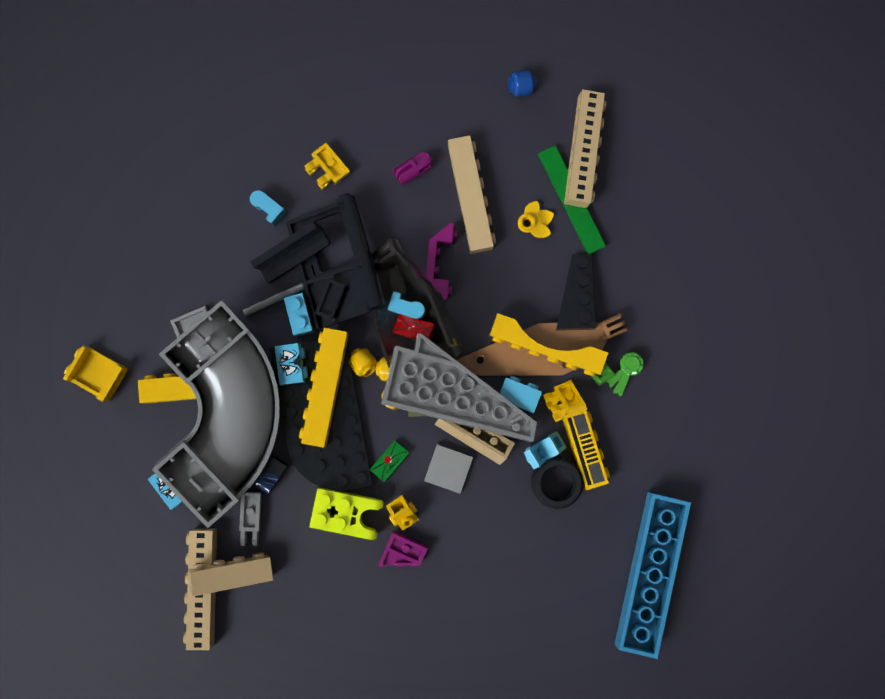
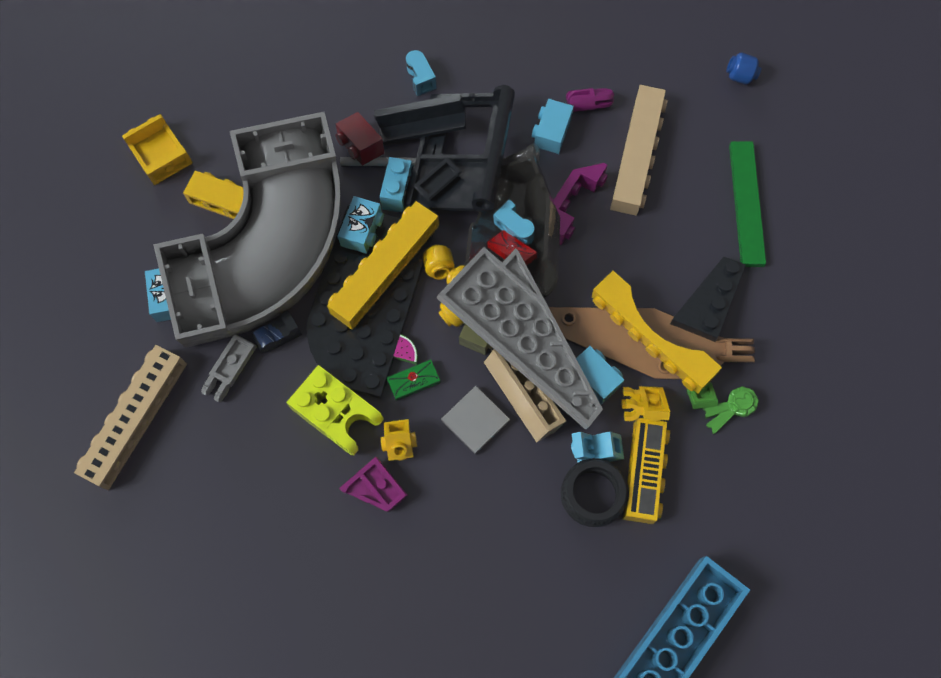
camera: 25 degrees right, 15 degrees down
(230, 574) = (169, 411): tan brick -> none
(250, 290) = (359, 138): none -> dark red brick
(330, 163) = (505, 59): yellow plate -> none
(372, 441) = (406, 350): none -> dark pink tile
(395, 205) = (552, 126): none -> medium azure brick
(538, 220) = (700, 206): yellow plate -> none
(584, 149) = (784, 155): tan brick -> none

